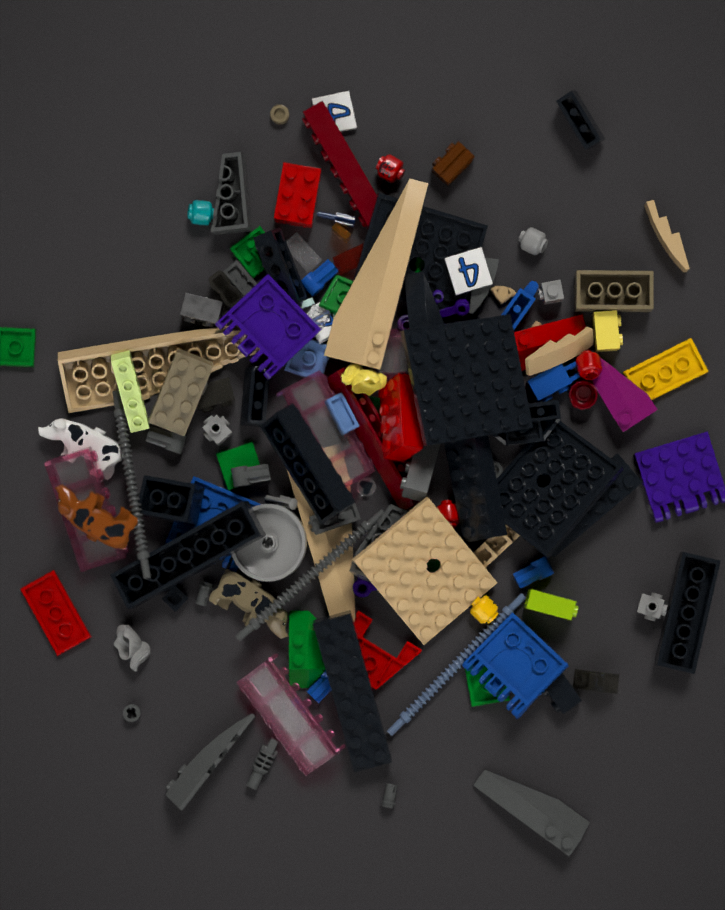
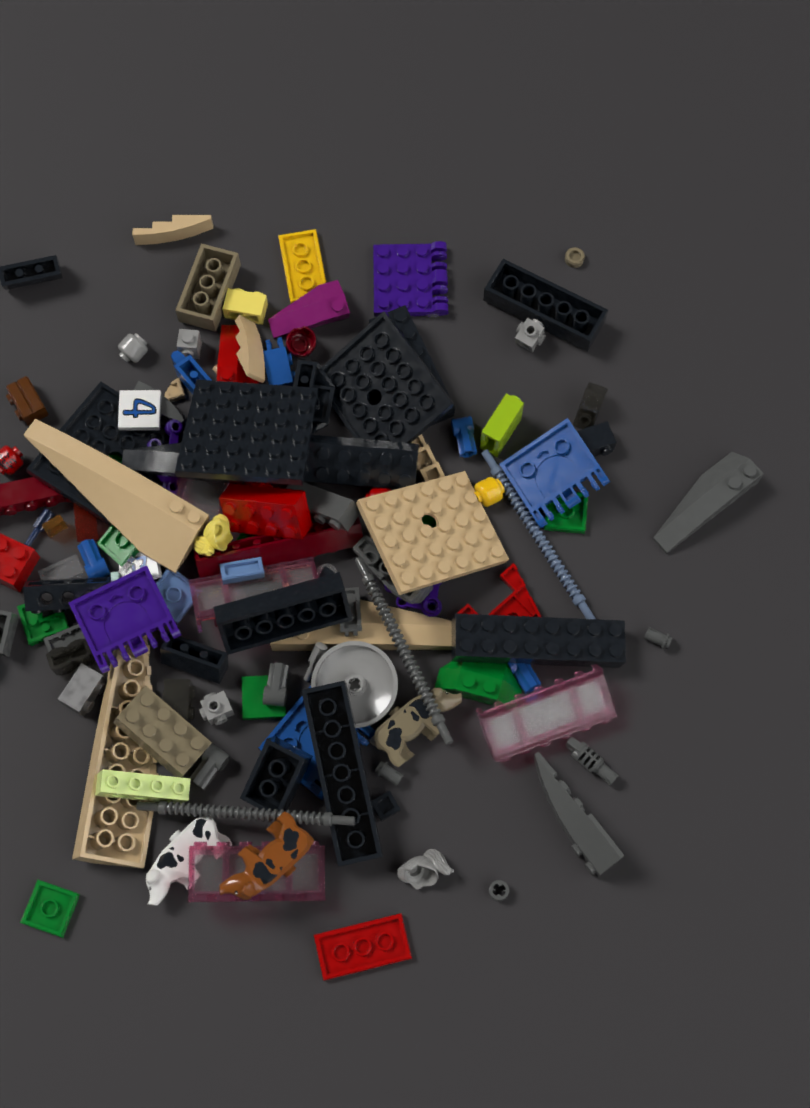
camera: 75 degrees left, 15 degrees down
(589, 365) = (273, 327): red head -> none

